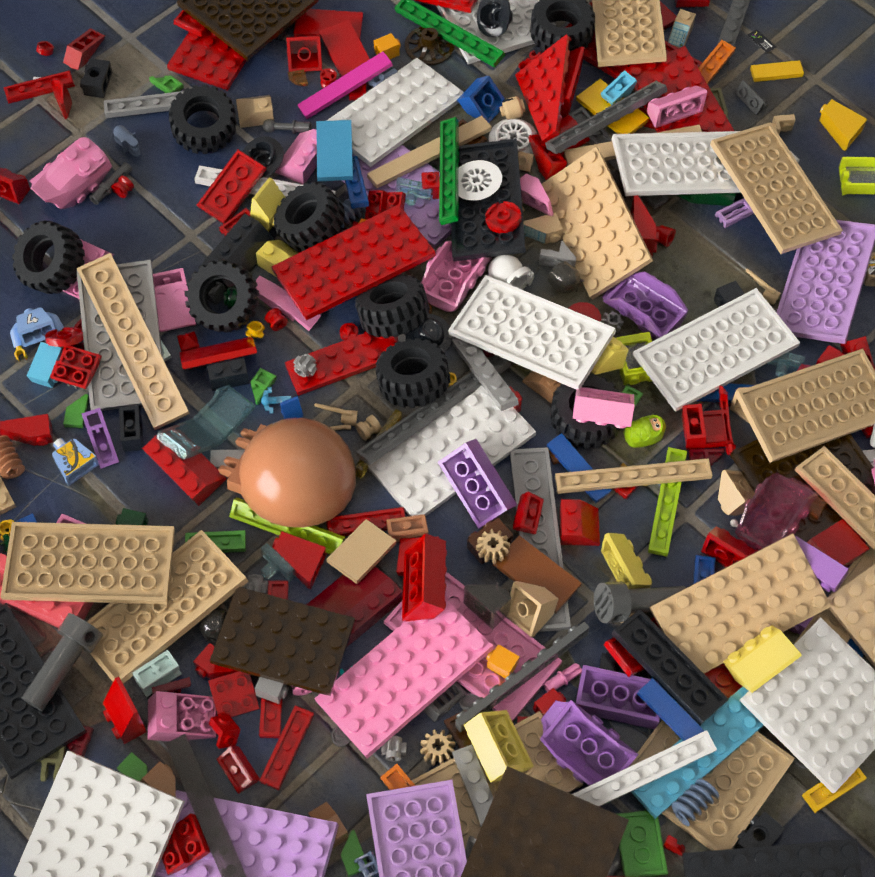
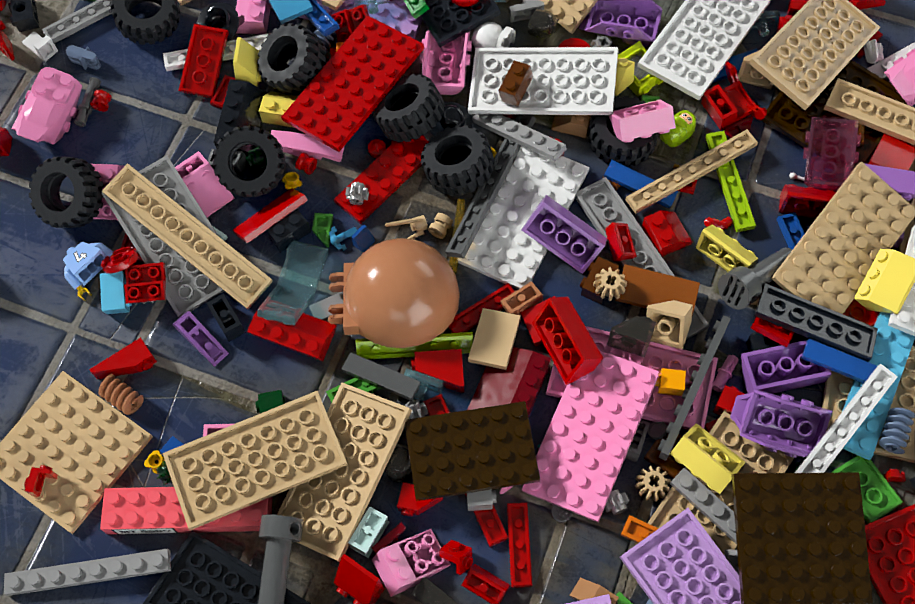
camera: 20 degrees left, 5 degrees up
(73, 459) = (185, 369): torso -> none
(74, 411) = (163, 325): bright green tile -> none
(95, 115) = (40, 46): none -> white bracket
(188, 341) = (235, 216): red slope -> none
(233, 694) = (447, 519): red hinge -> none
(240, 540) = (381, 376): none -> dark grey tile
(501, 323) = (515, 83): none -> reddish brown brick
(634, 538) = (723, 224): none -> red arm
(734, 492) = (783, 150): tan slope -> none

